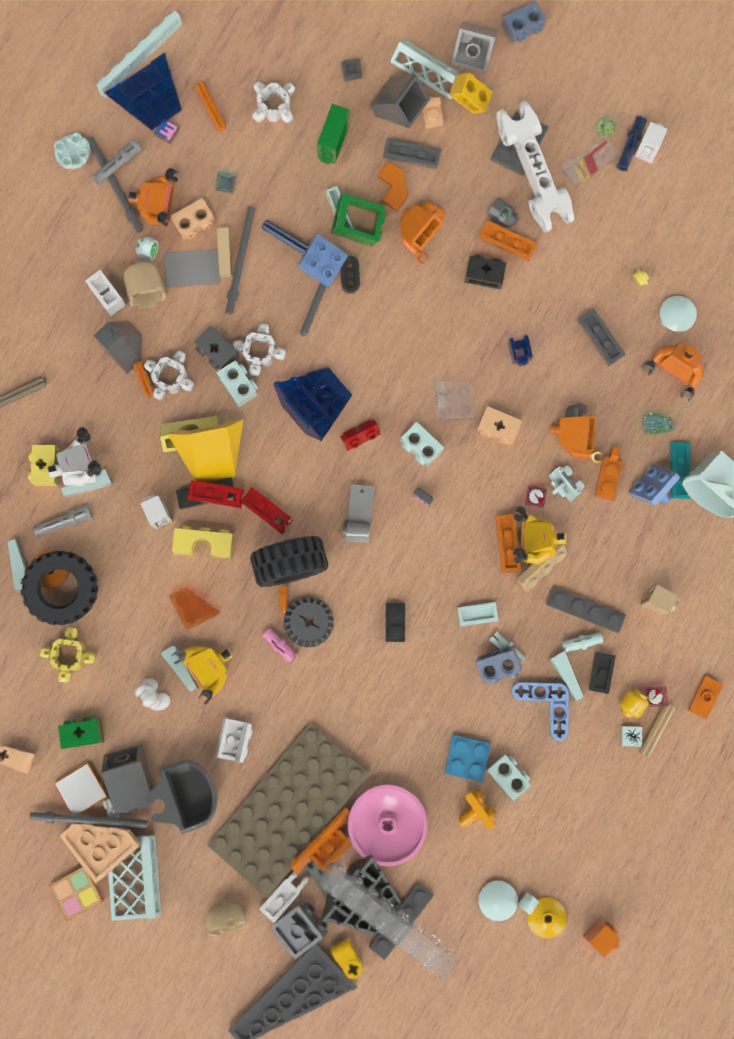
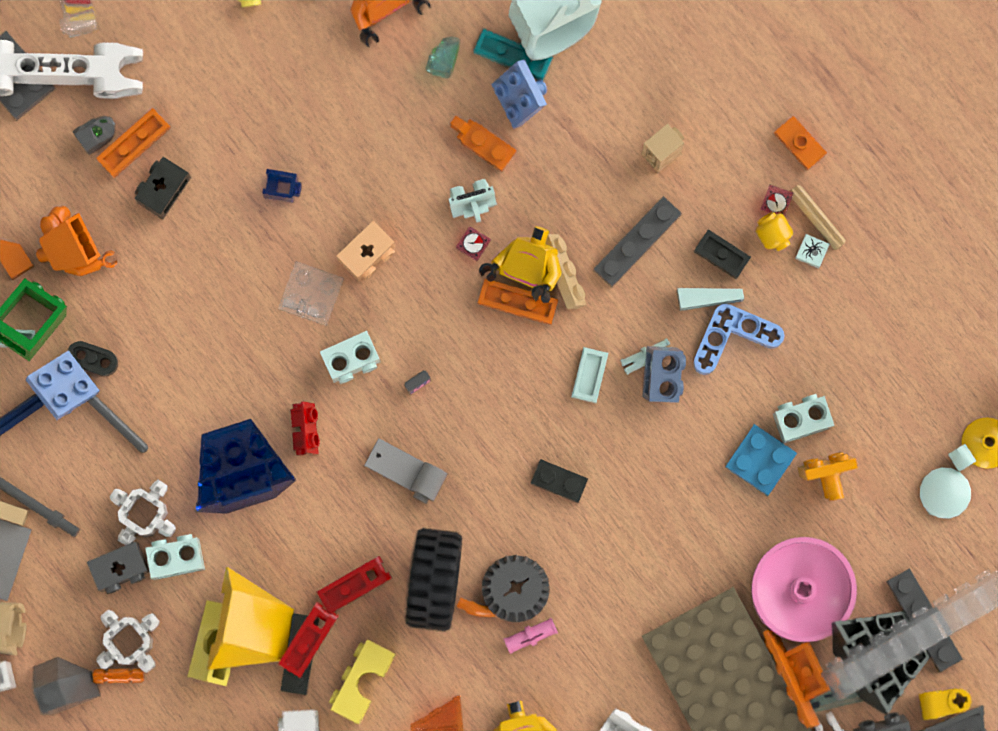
camera: 65 degrees left, 0 degrees up
(577, 432) = (415, 159): orange torso -> none
(582, 642) = (675, 262): light aqua pin -> none
(601, 337) = (306, 79): dark grey plate -> none

